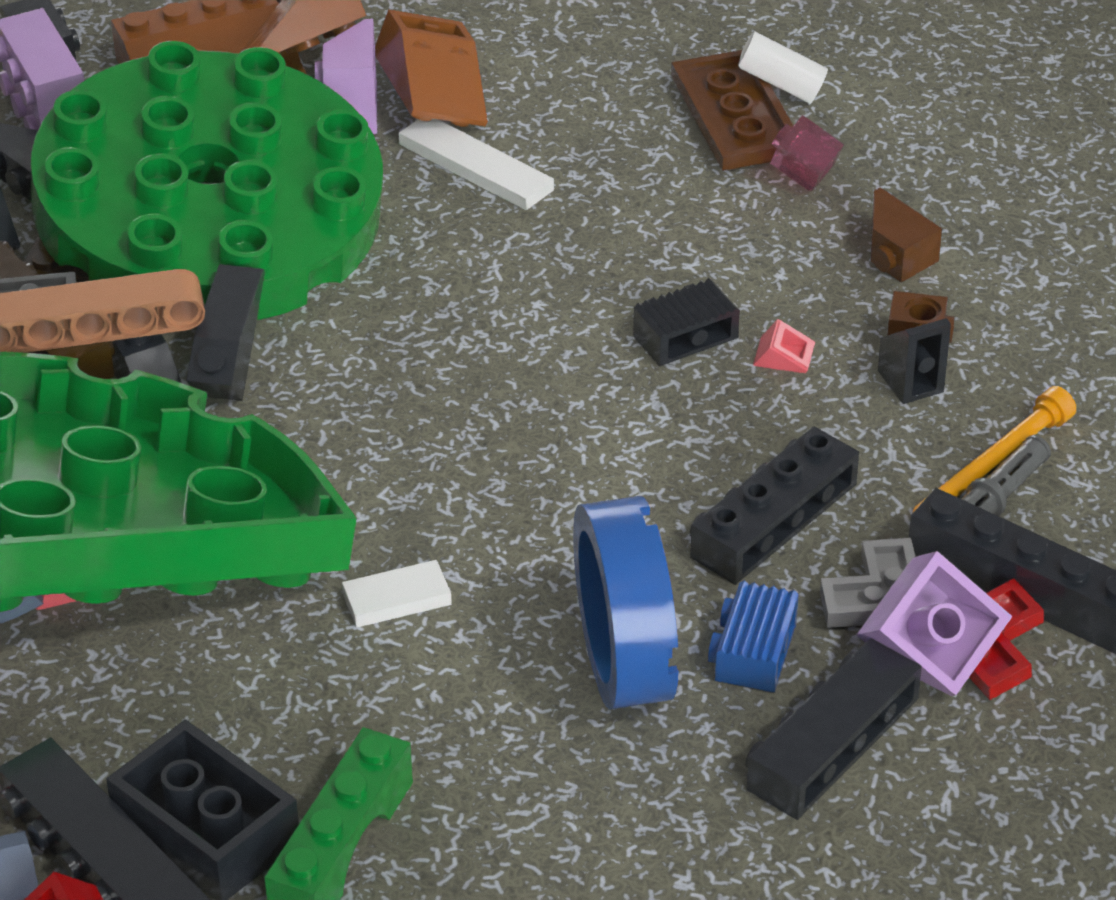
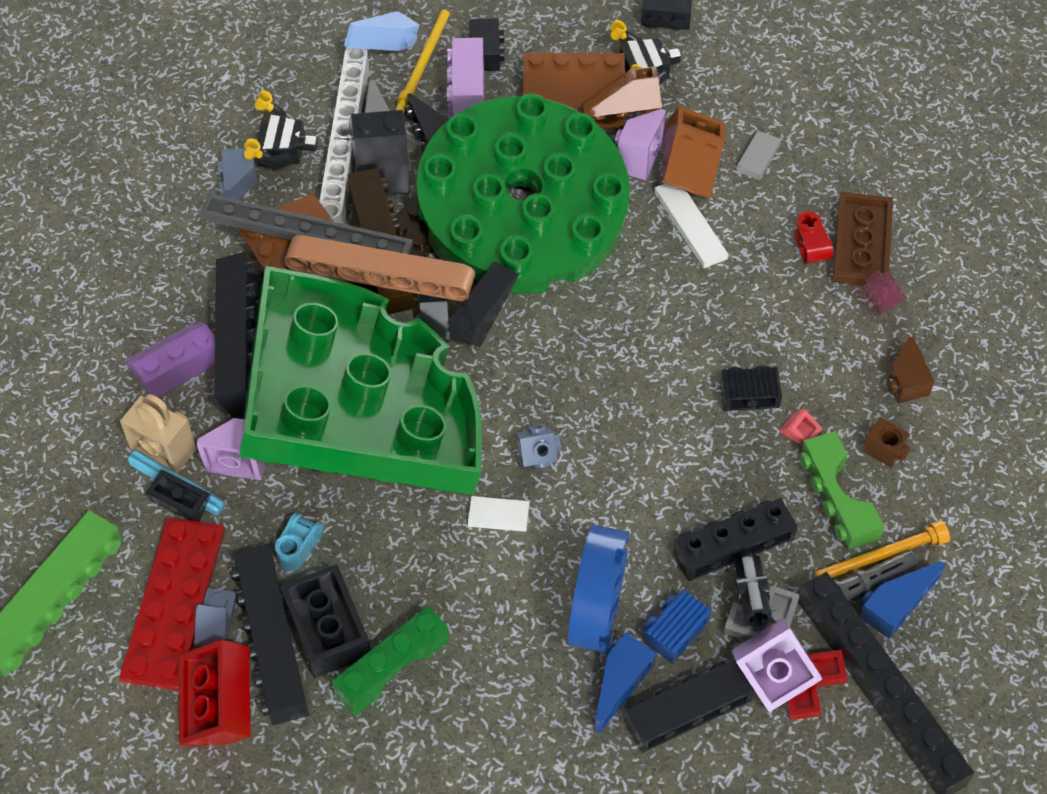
camera: 25 degrees right, 15 degrees up
(93, 729) = (298, 537): none -> medium azure piece
(411, 483) = (538, 446): none -> sand blue brick
(526, 58) = (758, 155): none -> light grey tile
(666, 126) = (812, 238): none -> red piece
(710, 723) = (624, 670): none -> blue slope
(782, 67) = (903, 221): white brick -> none
(844, 547) = (752, 590): none -> black piece
(916, 360) = (868, 470): black slope -> none
(929, 427) = (854, 520): none -> bright green arch
(1052, 491) = (896, 599): none -> blue slope

